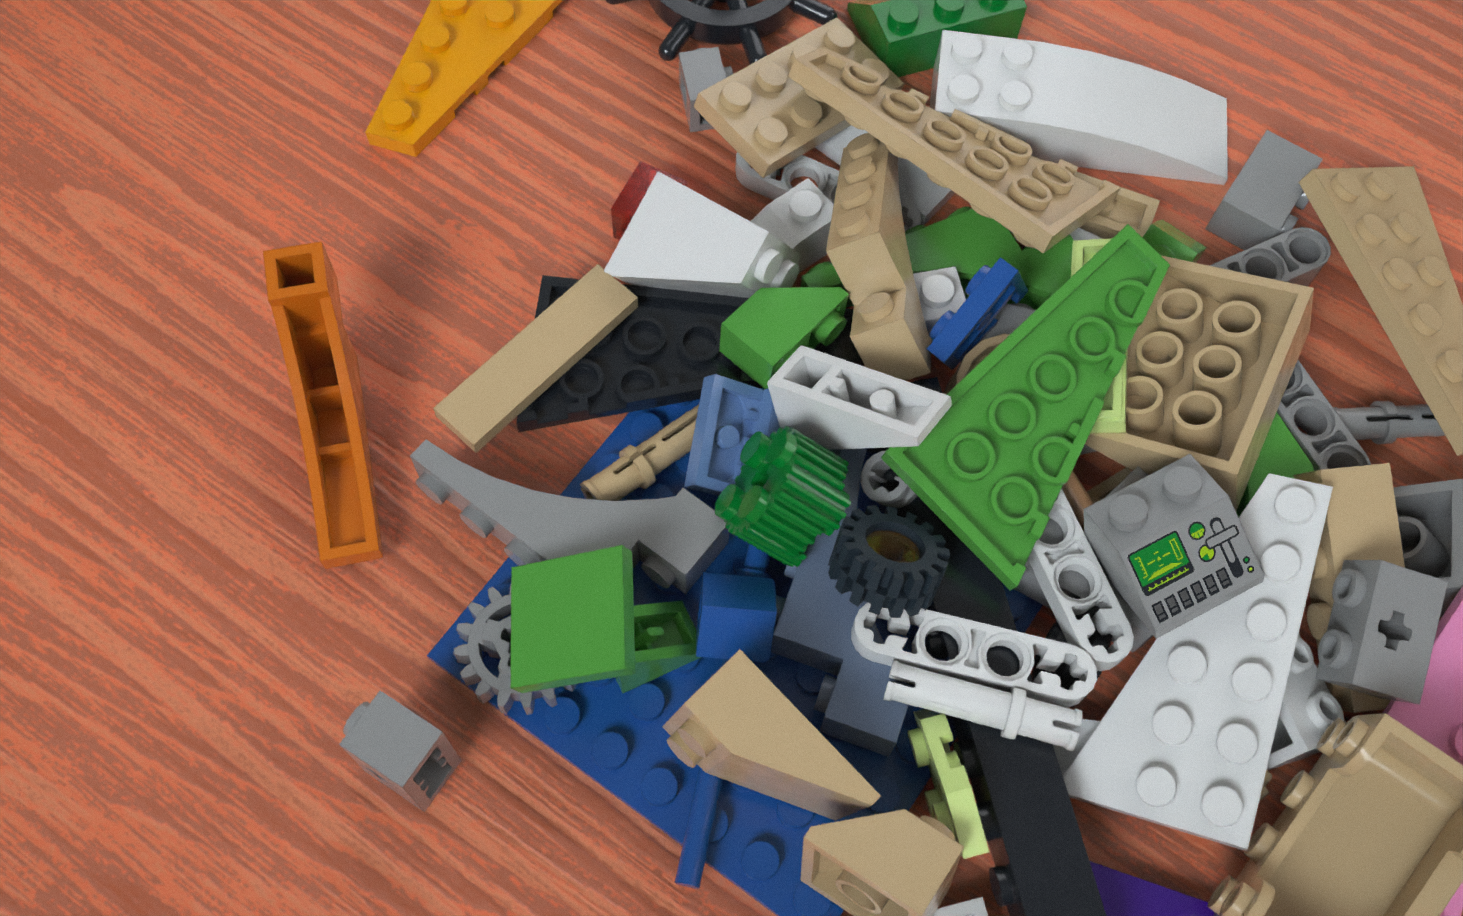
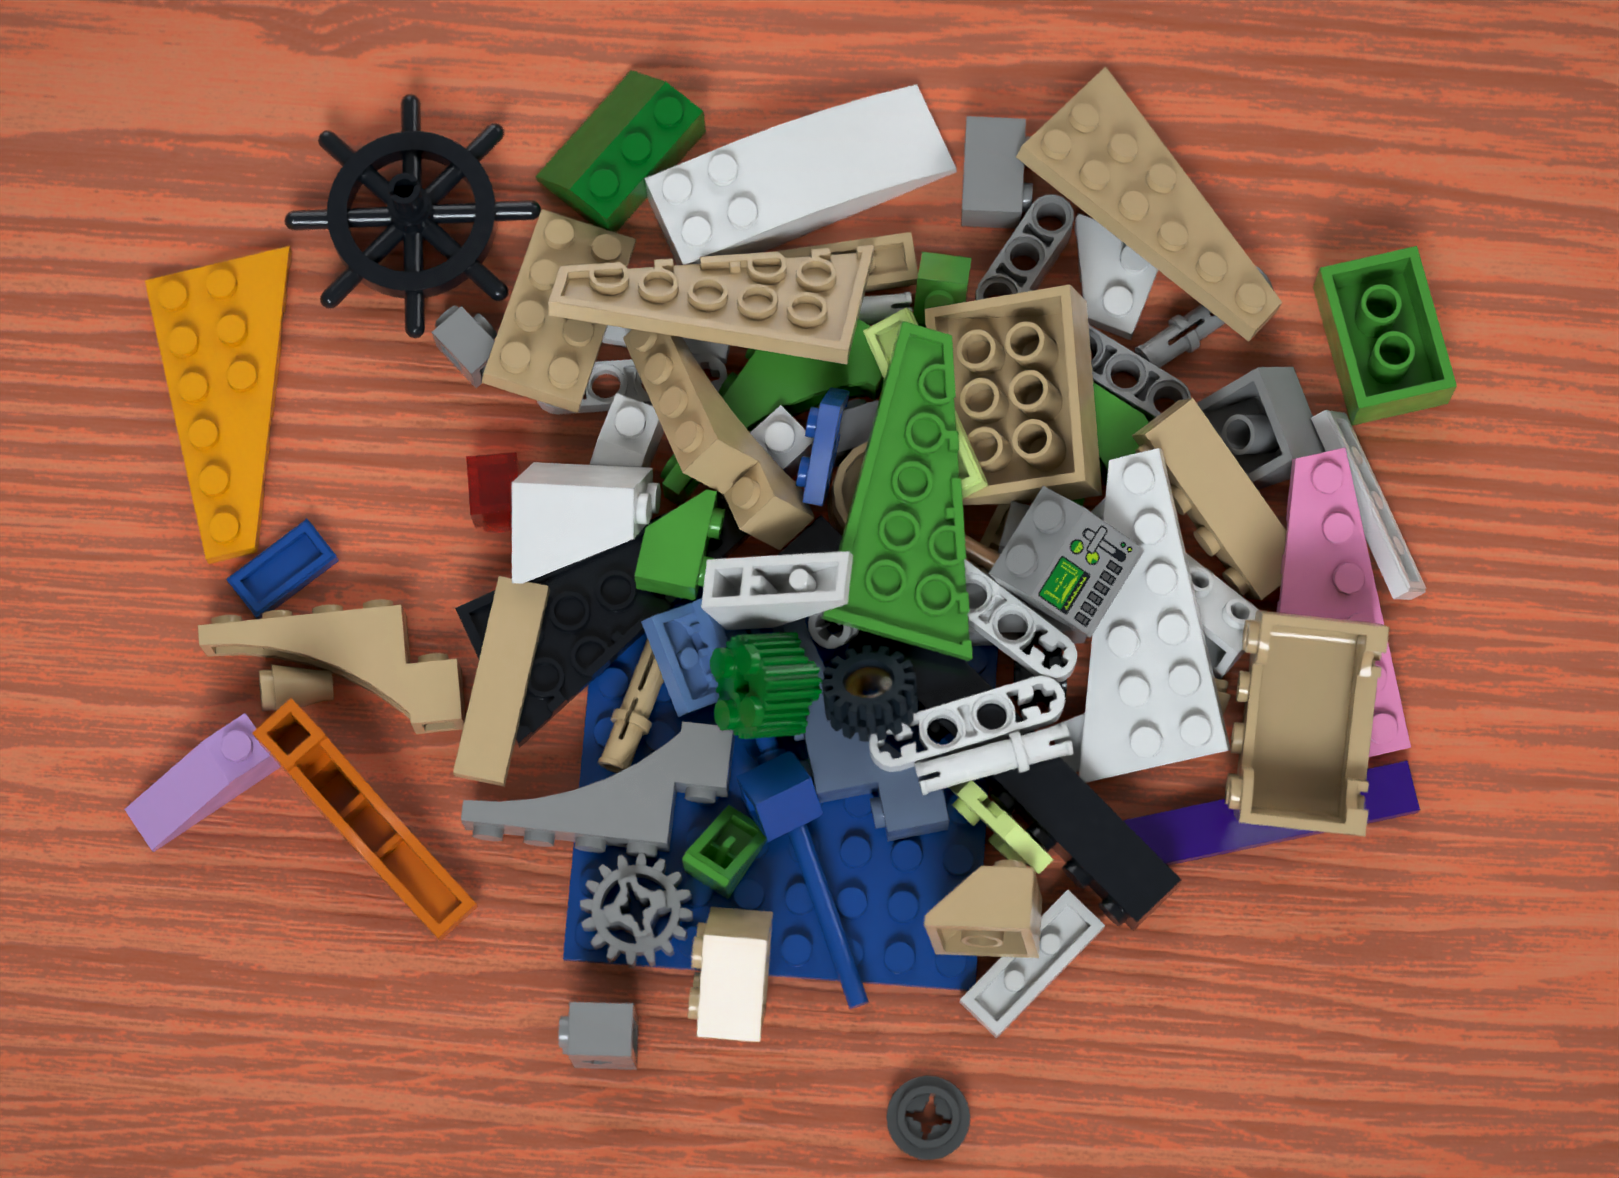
camera: 25 degrees left, 10 degrees up
(210, 305) = (201, 783): none -> lavender slope
(362, 272) = (300, 684): none -> tan cone
(424, 178) = (283, 569): none -> blue tile
(440, 265) = (357, 644): none -> tan arch
(569, 769) = (734, 974): none -> brick
(572, 620) = (670, 871): bright green tile -> none
(758, 739) = (846, 876): tan slope -> none
(1342, 336) = (1112, 278): none -> white wing
(1381, 630) = (1264, 552): light grey brick -> none

